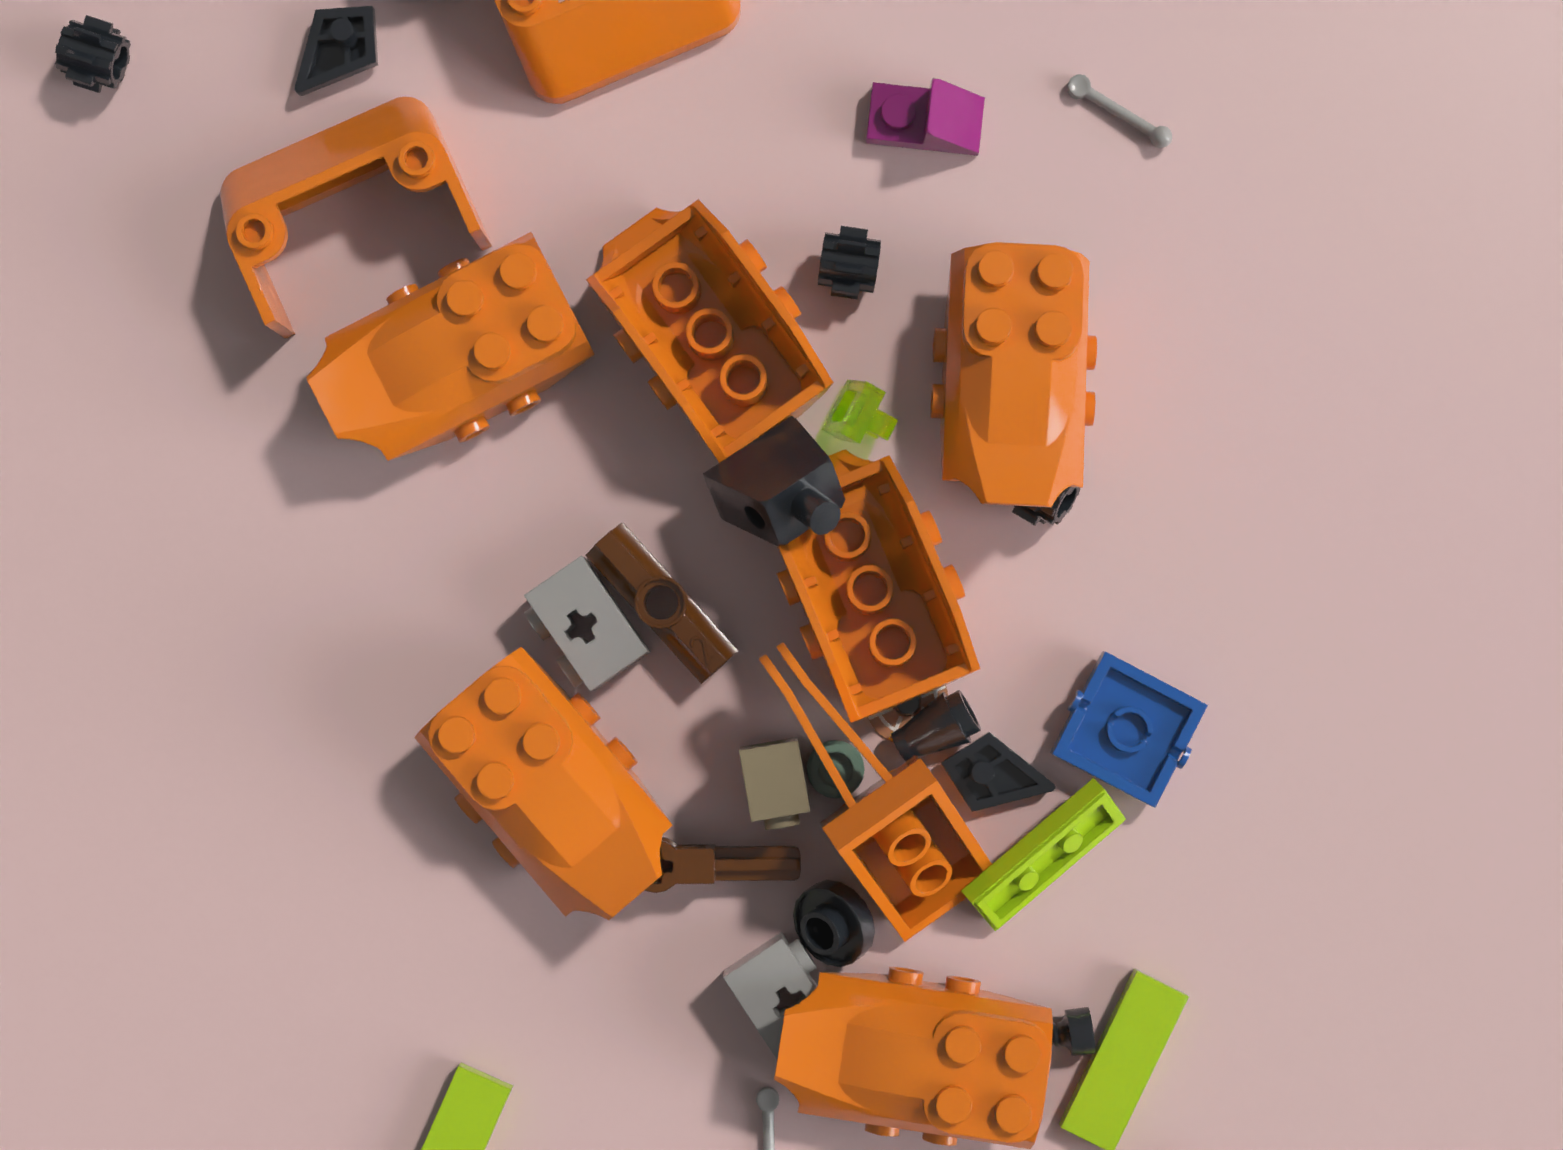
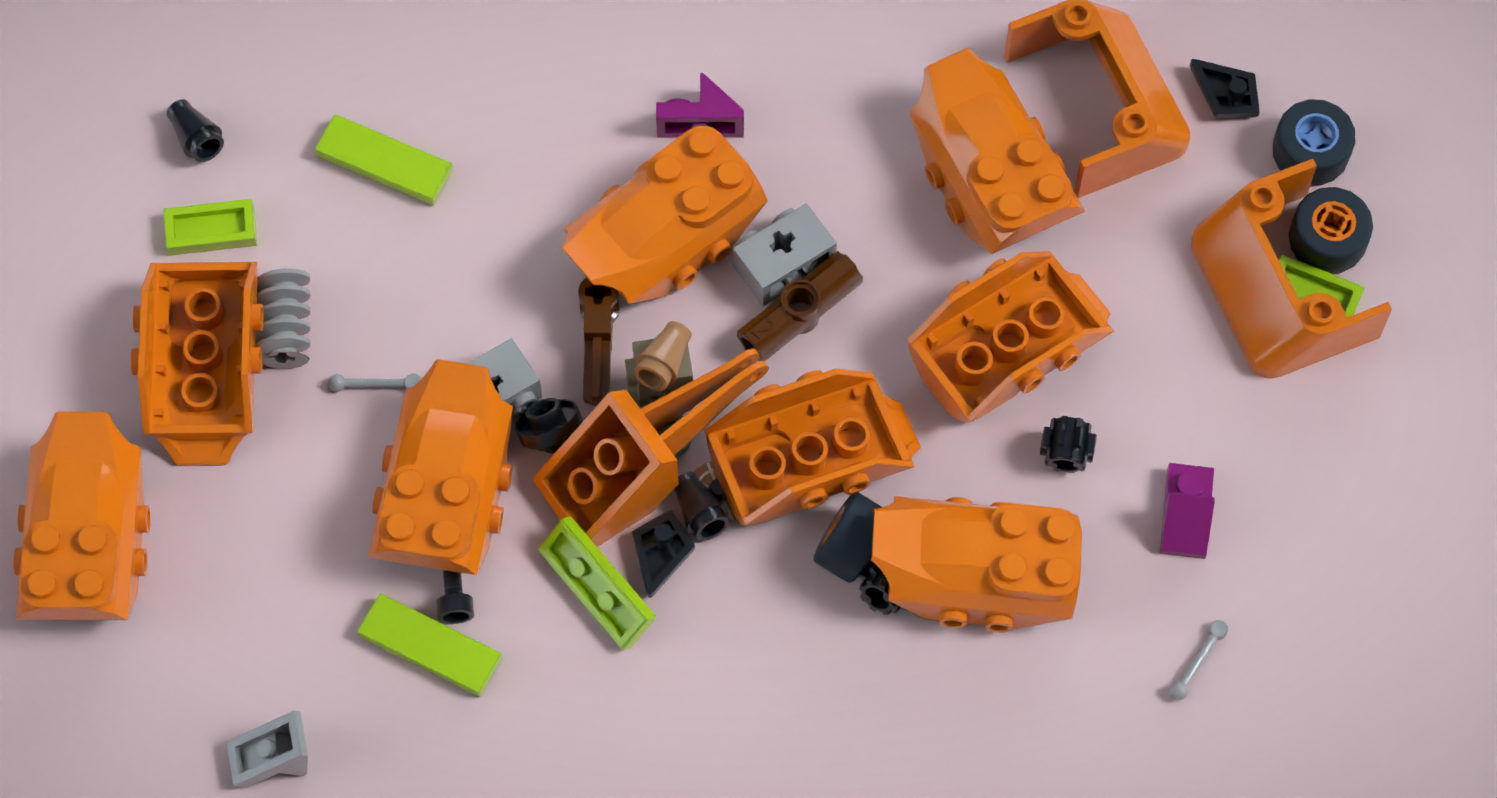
camera: 95 degrees right, 20 degrees down
(387, 720) = (713, 110): none -> magenta slope
(778, 486) = (891, 378): black torso -> none
(783, 780) = (661, 359): none -> medium nougat cone
(858, 414) = (947, 452): clear neon green tile -> none
(984, 538) = (848, 539): none -> black wheel
(1129, 729) = (694, 650): blue plate -> none

